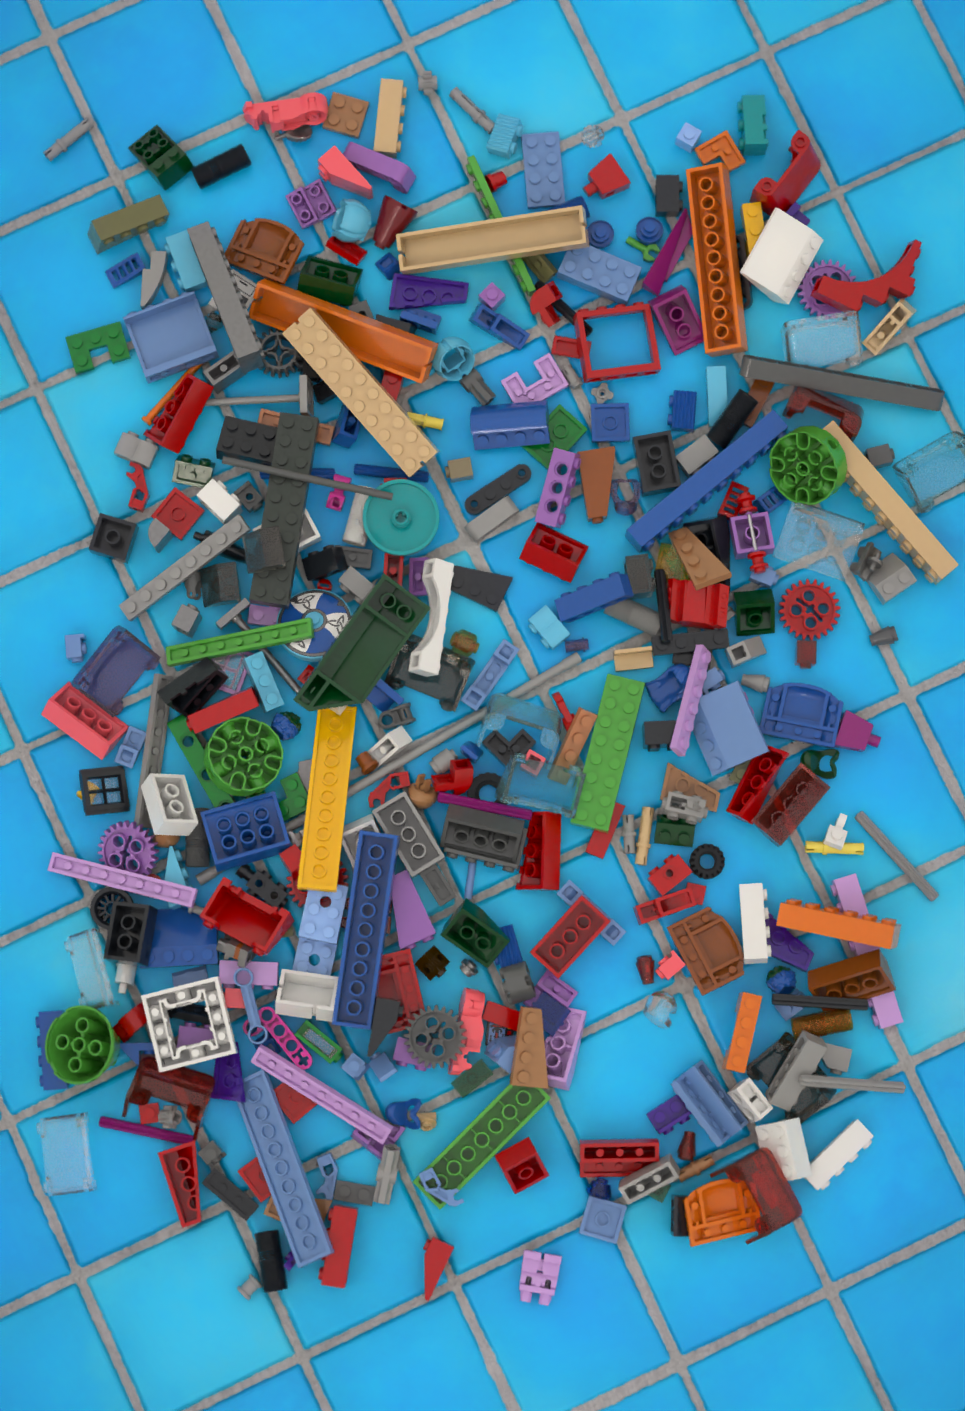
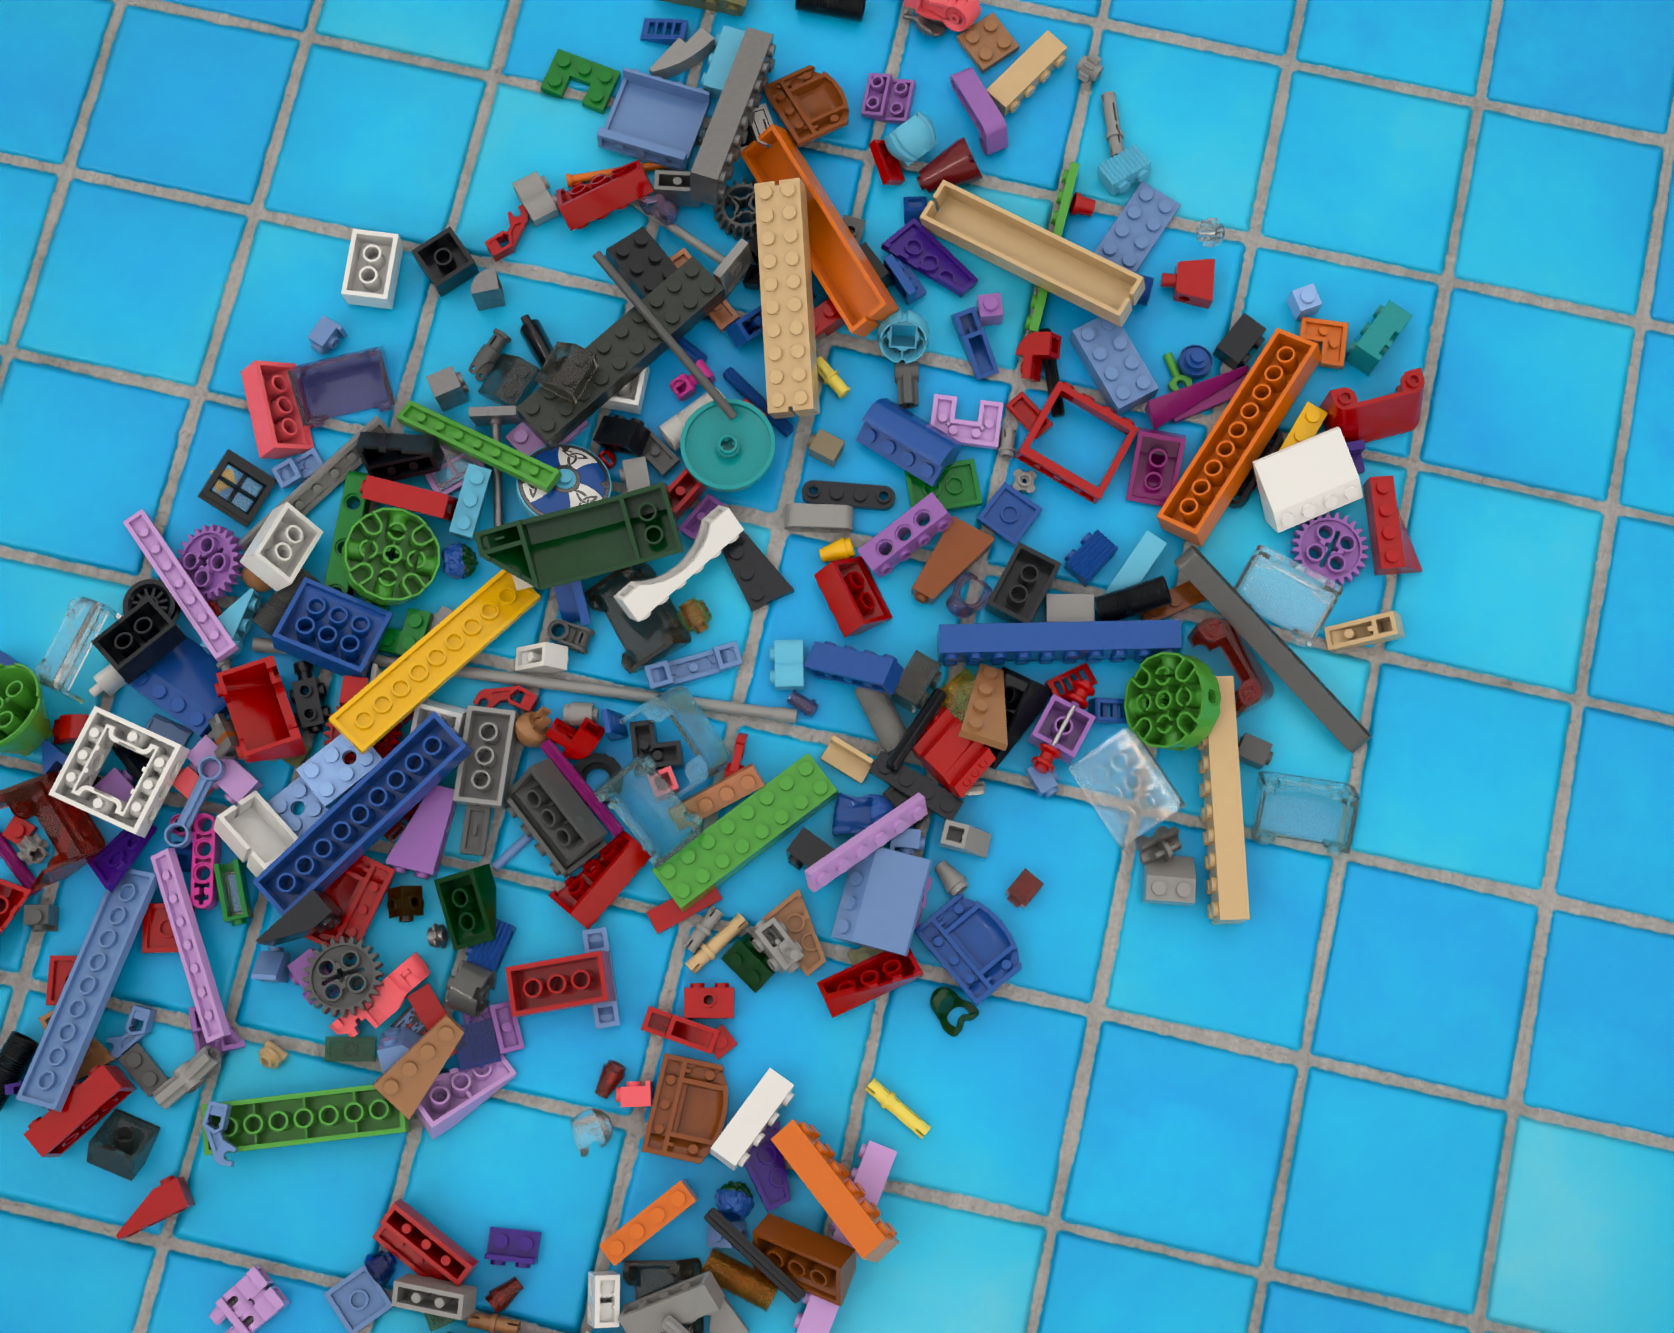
camera: 40 degrees right, 5 degrees down
(70, 580) = (372, 269): none -> white brick
(178, 513) = (525, 286): red plate -> none
(184, 567) = (485, 337): light grey plate -> none
(192, 471) = (572, 258): bracket -> none
(219, 501) = (571, 303): white brick -> none
(228, 394) = (663, 210): none -> clear purple piece
(230, 1194) = (26, 973): black plate -> none
(250, 505) = (603, 311): dark grey brick -> none
(329, 280) = (846, 179): dark green slope -> none
(341, 173) = (937, 87): coral slope -> none
(355, 1066) = (245, 943): medium blue window -> none
(366, 763) = (506, 657): dark orange piece -> none
(381, 1245) = (122, 1144): none -> clear smoke slope
(397, 1113) = (250, 1027): blue piece -> none
(520, 531) = (837, 550): none -> yellow cone
(521, 1165) = (321, 1177): red brick -> none
(541, 267) = (1060, 315): olive plate -> none
(600, 234) = (1143, 329): blue plate -> none
(709, 1103) = (559, 1268): medium blue brick -> none
(715, 853) = (745, 1010): black tyre -> none
(754, 612) = (1004, 807): dark green slope -> none
(790, 804) = (886, 1028): clear red slope -> none
(820, 597) = (1084, 845): red gear -> none
(835, 834) = (909, 1096): white plate -> none
(851, 295) = (1376, 585): red arch -> none
(855, 733) = (1010, 1009): magenta torso -> none
(859, 253) = (1388, 536): none -> red wedge
(884, 636) = (1119, 935): dark grey cone -> none
(896, 856) = (955, 1168): light grey axle -> none

